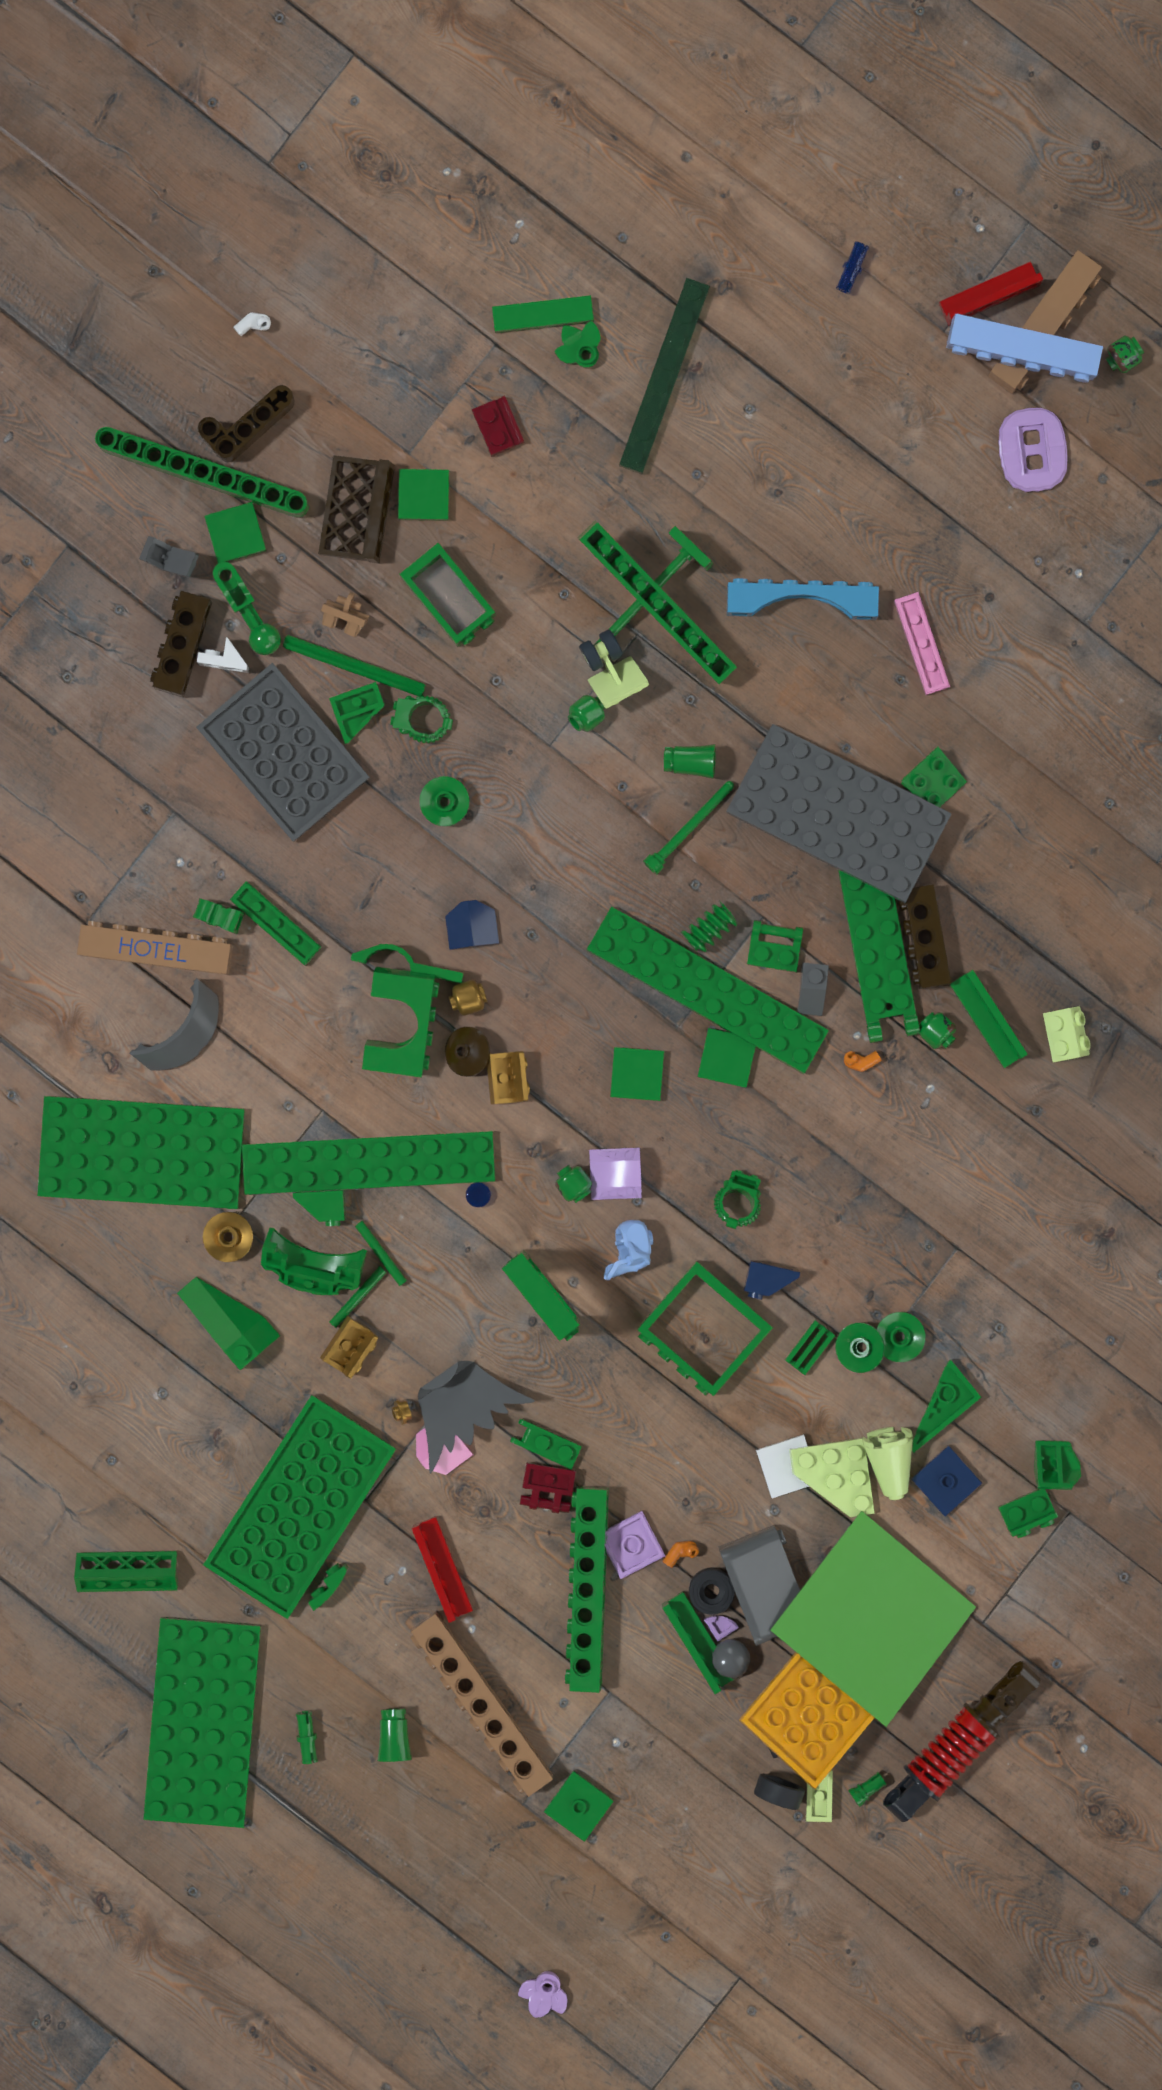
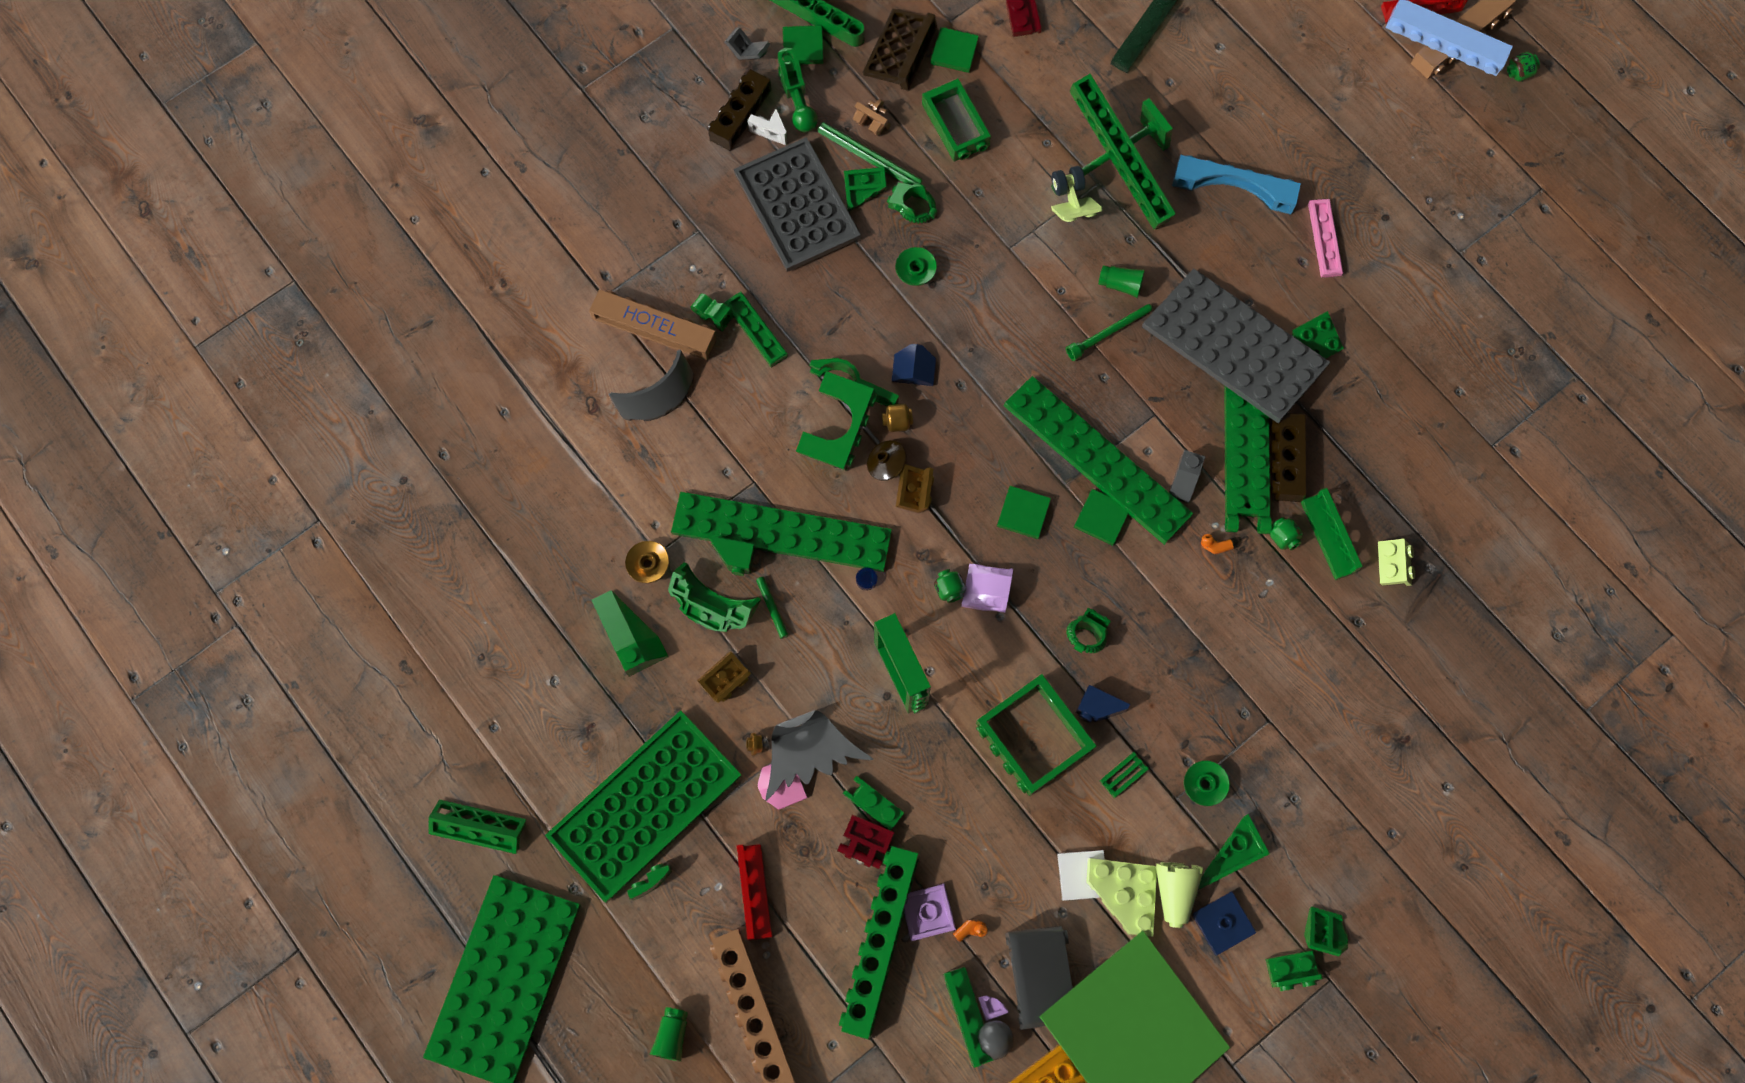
camera: 10 degrees right, 15 degrees down
(141, 1152) = (595, 480): green plate -> none
(306, 1737) = (591, 1017): green pin -> none
(357, 1297) = (743, 639): green bar -> none
(586, 713) = (1045, 227): green head -> none
(634, 1248) = (989, 650): light blue head -> none
(709, 927) = (1109, 408): green piece -> none
(711, 1605) = (1003, 977): black tyre -> none
(772, 954) = (1157, 444): green plate -> none
(848, 1347) = (1161, 776): green dish -> none
(1051, 448) = (1453, 121): lavender piece -> none

